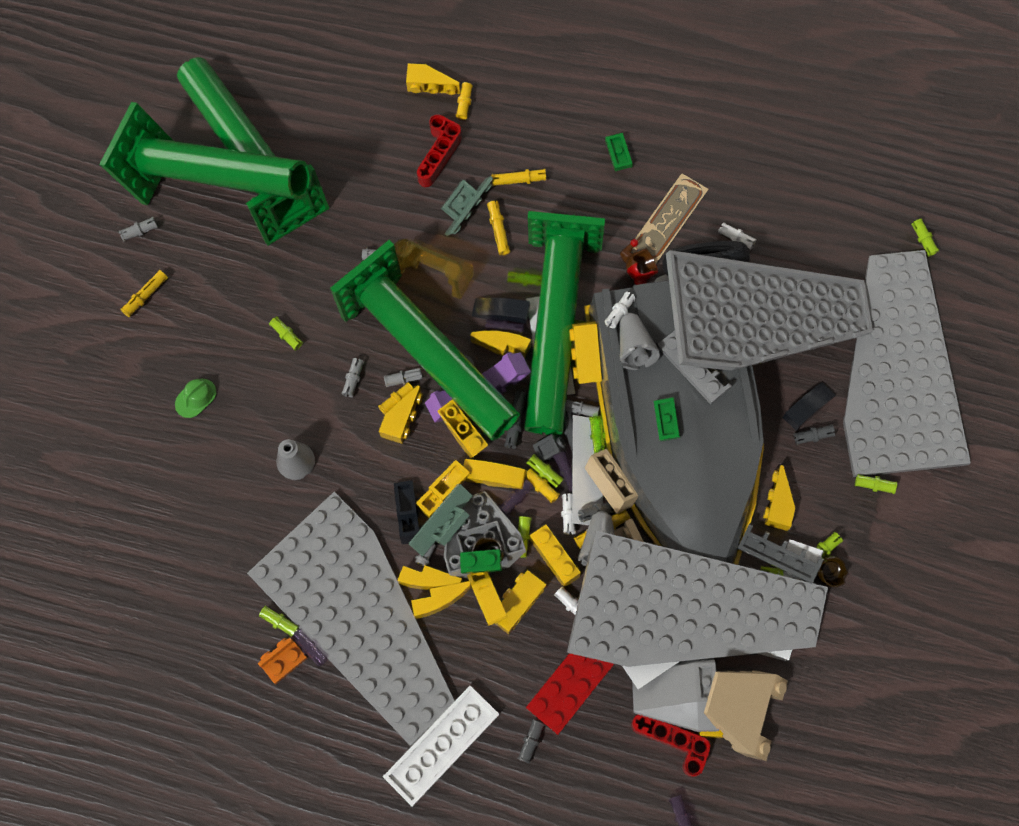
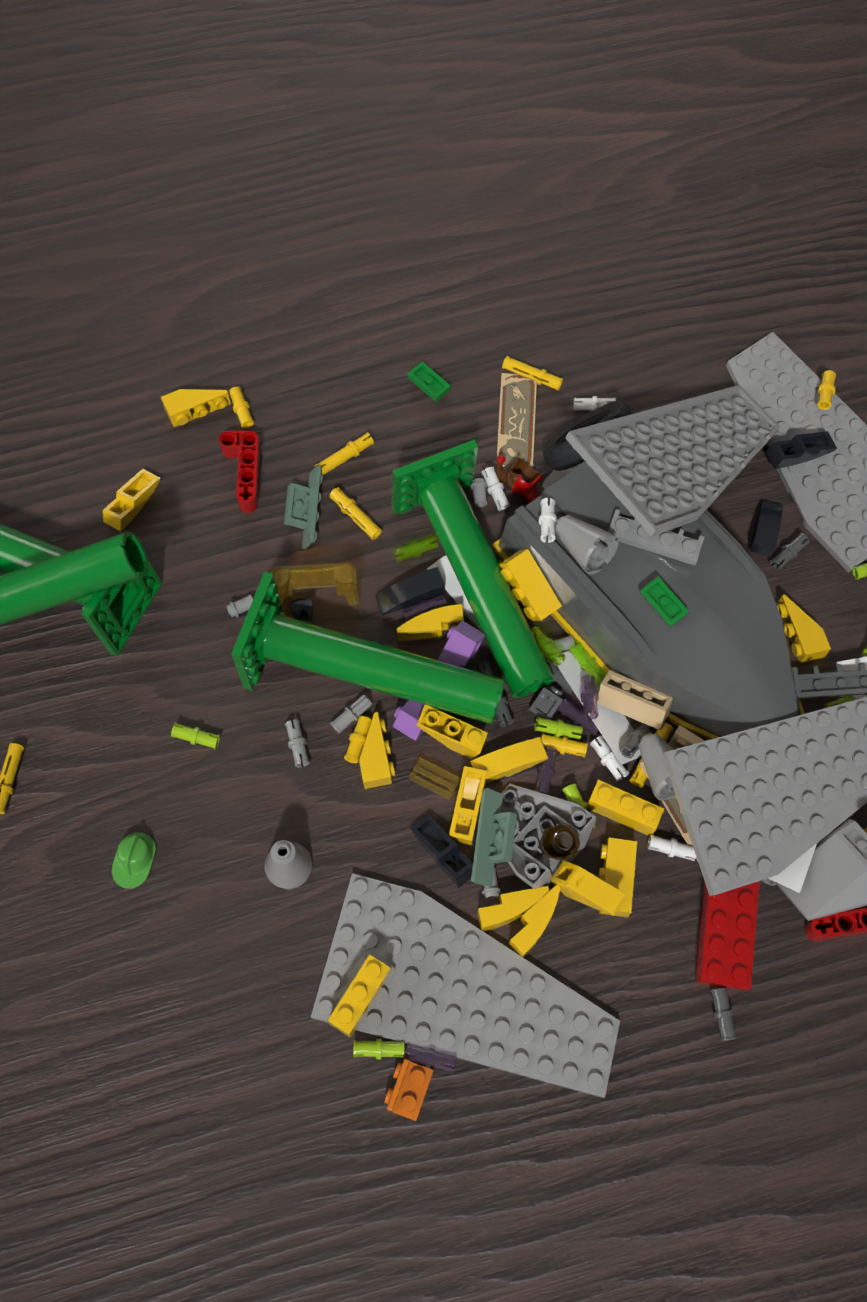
camera: 35 degrees left, 5 degrees down
(284, 577) = (359, 996): none -> yellow brick
(343, 132) = (130, 499): none -> yellow slope
(416, 276) = (300, 604): none -> black tile
(425, 443) = (417, 769): none -> clear yellow tile
(441, 746) = (636, 1078): white plate -> none
(480, 561) = (561, 854): green plate -> none
(573, 405) = (548, 647): none -> clear neon green pin
(579, 460) = (589, 697): none -> clear purple pin
(602, 259) = (479, 490): none -> light grey pin
(615, 263) = (495, 488): none -> white pin
(708, 191) = (532, 373): none -> yellow pin
(876, 358) = (800, 449): none -> black slope
(925, 237) = (765, 320): lime pin -> none
(932, 321) = (826, 390): none -> yellow pin

